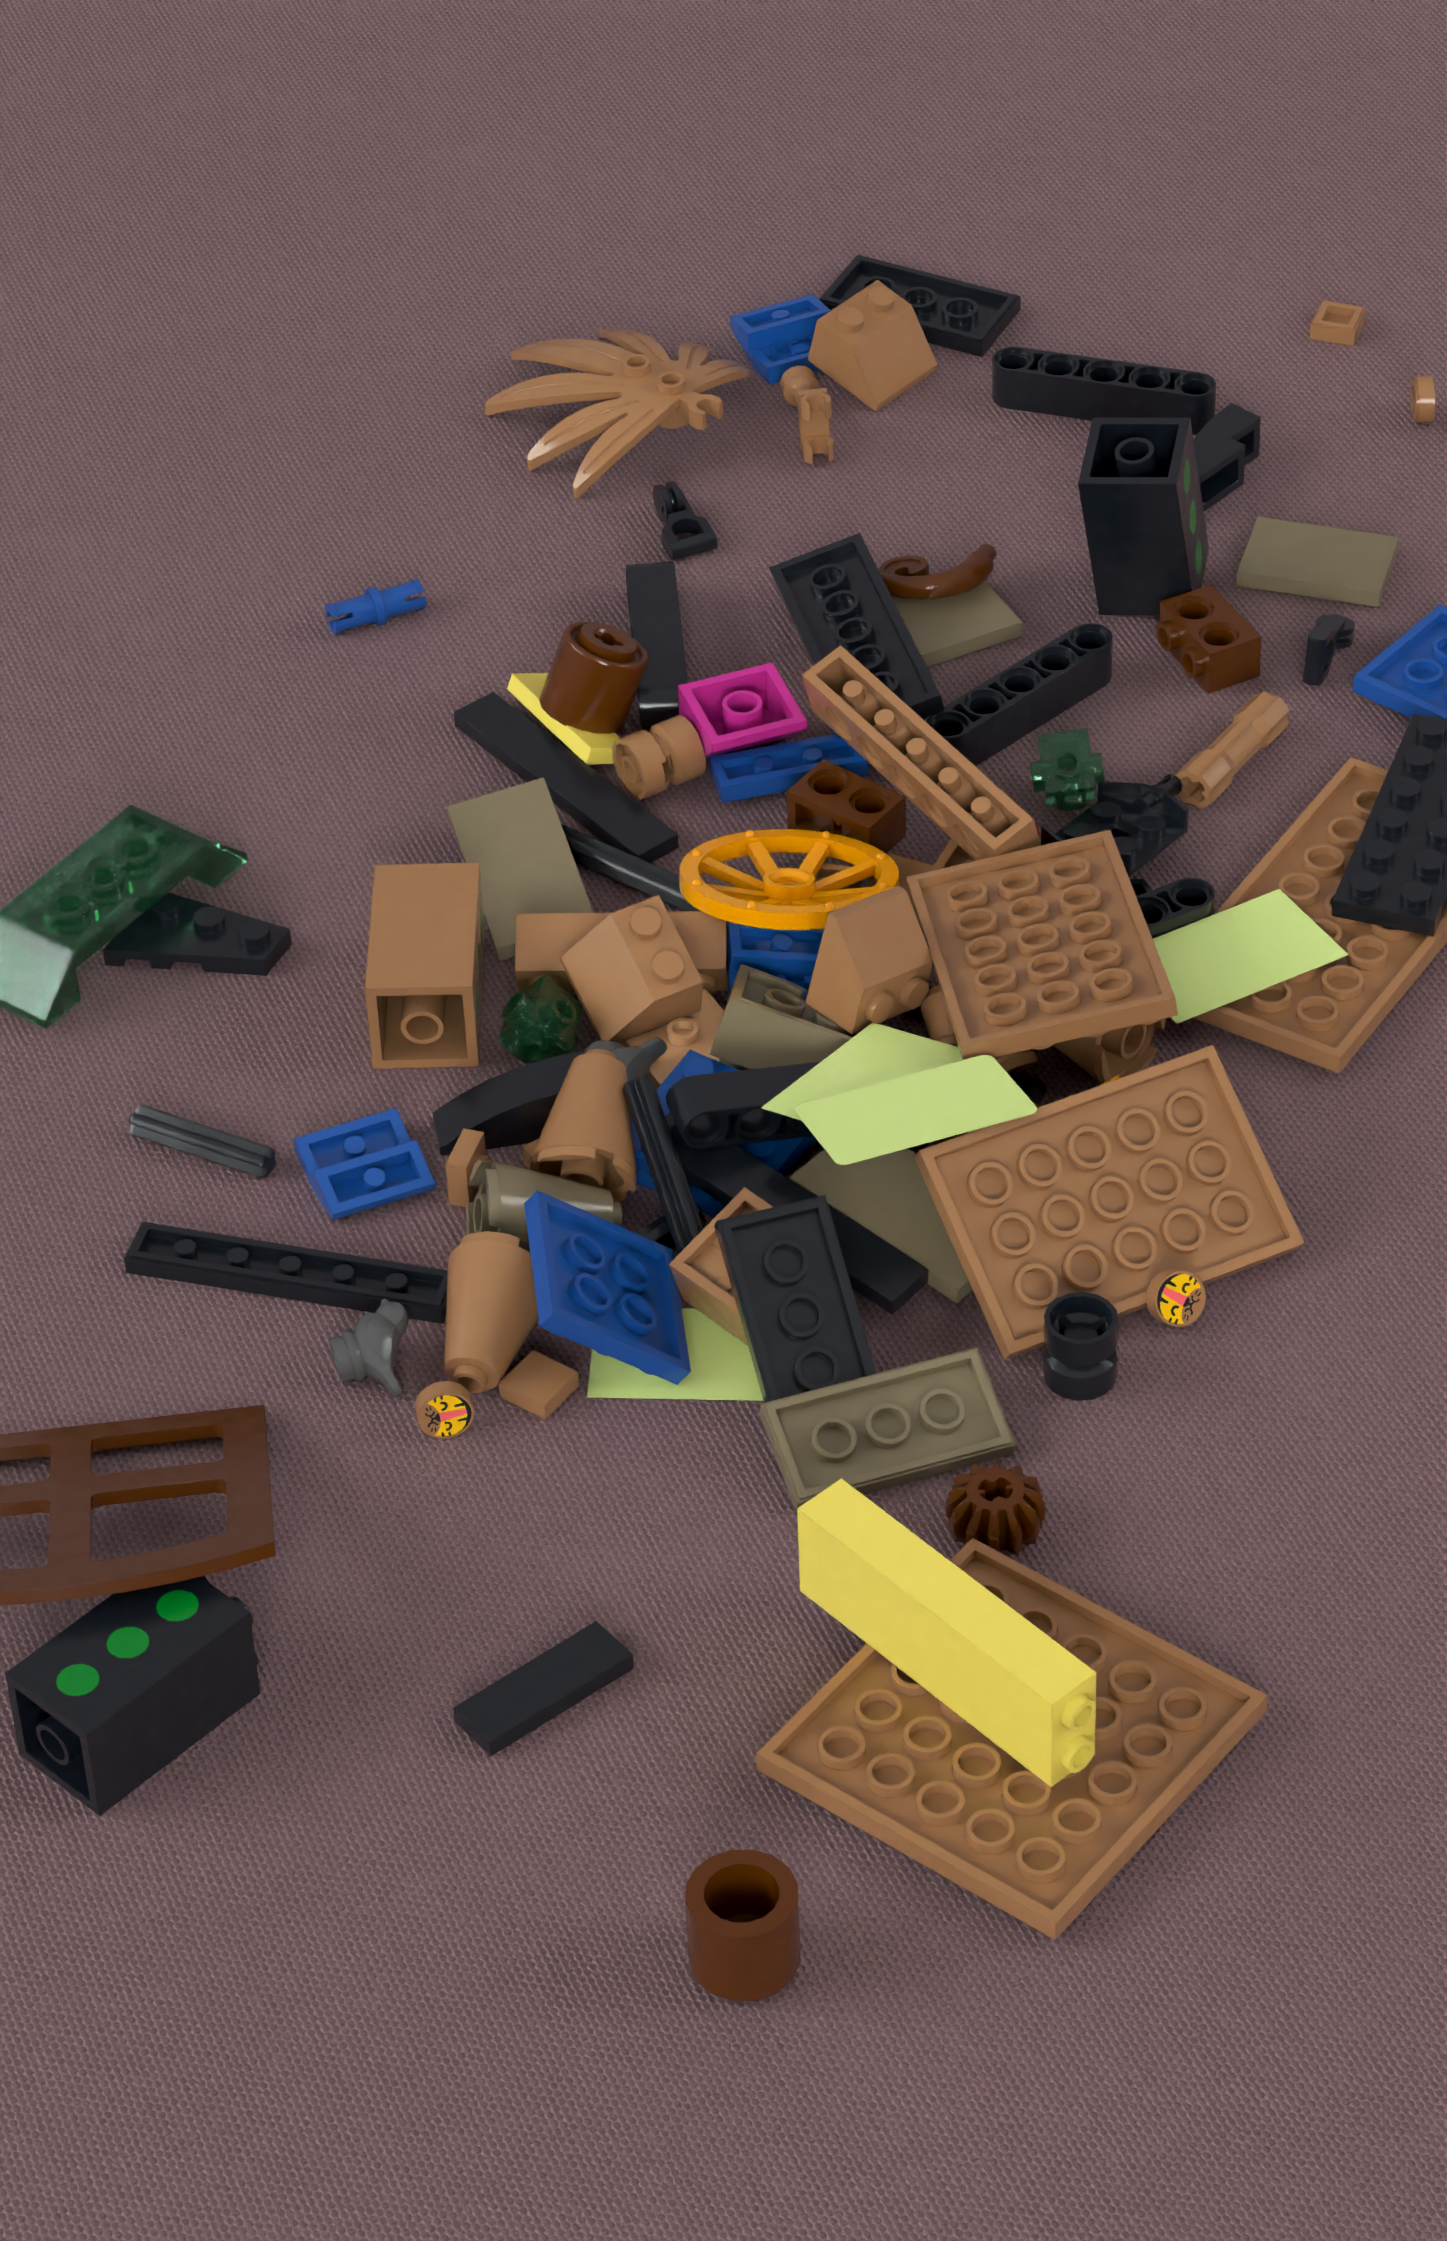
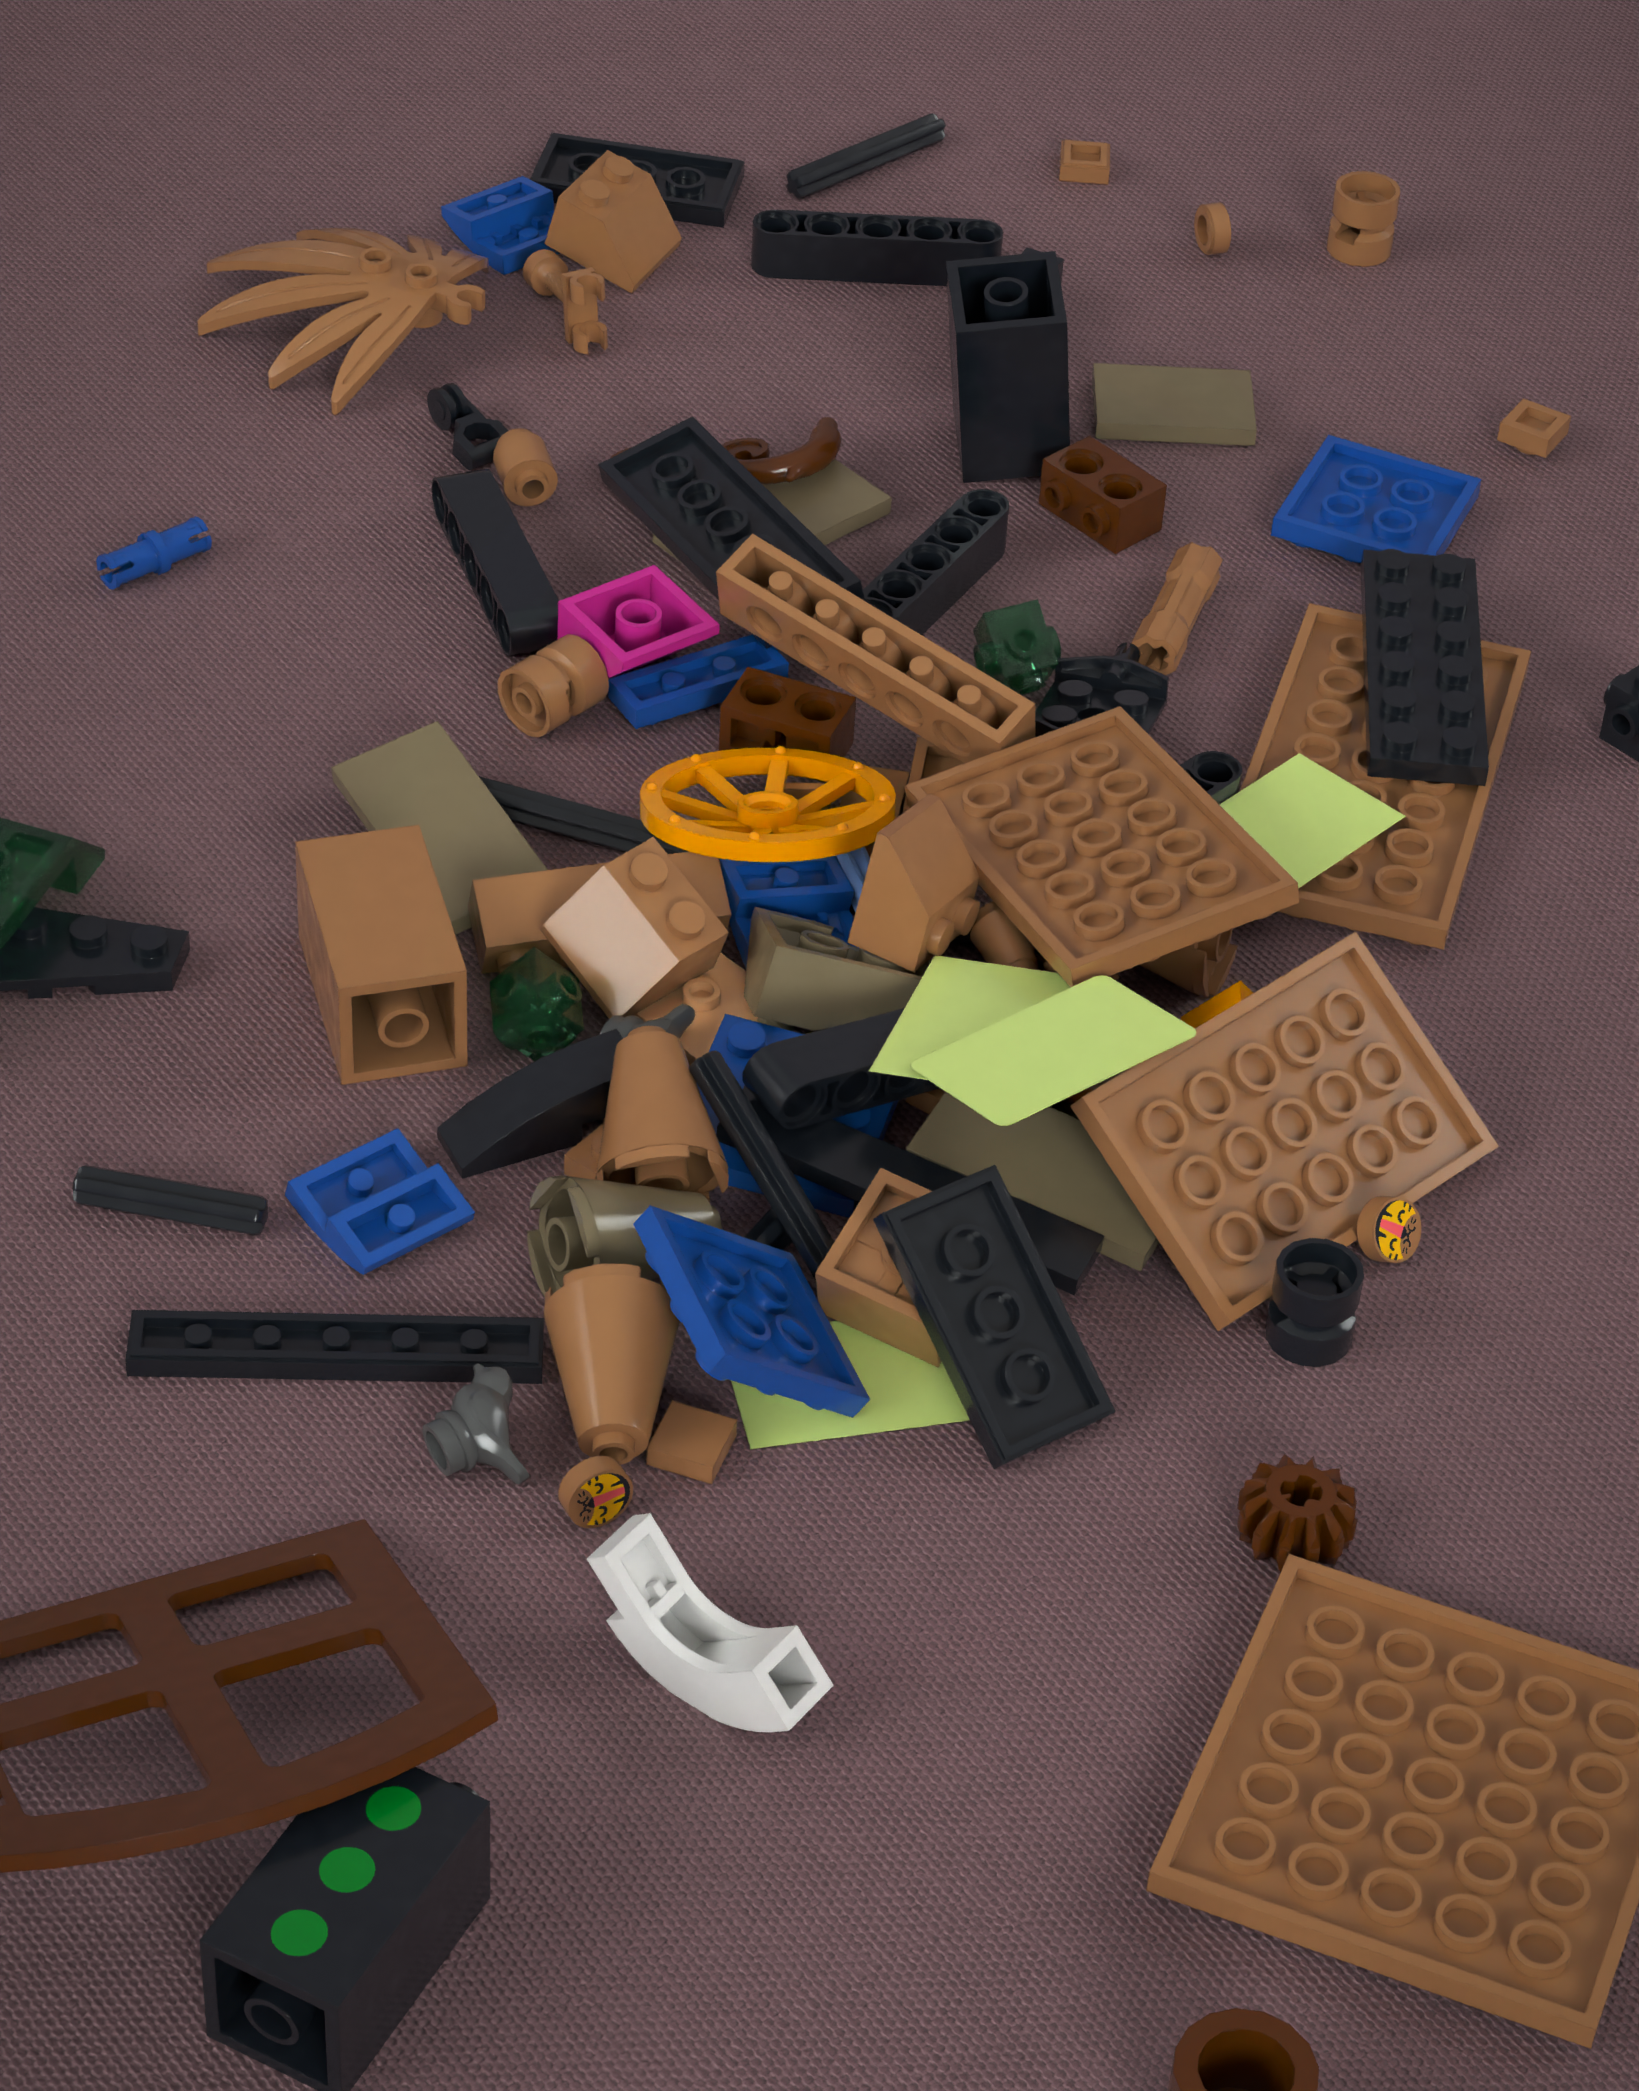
camera: 20 degrees left, 0 degrees up
(466, 1152) = (512, 1189): medium nougat plate -> none
(474, 1537) = (693, 1648): none -> white arch
(543, 1688) = (846, 1831): black tile -> none
(570, 781) = (412, 703): black tile -> none
(588, 746) = (424, 653): light yellow tile -> none
(594, 678) = (453, 603): reddish brown piece -> none
(711, 563) = (524, 467): none -> medium nougat brick
(888, 1427) = (1129, 1436): dark tan tile -> none
(947, 1632) = (1344, 1682): light yellow brick -> none
(1135, 300) = (865, 156): none -> black axle
(1326, 636) = (1225, 478): black piece -> none

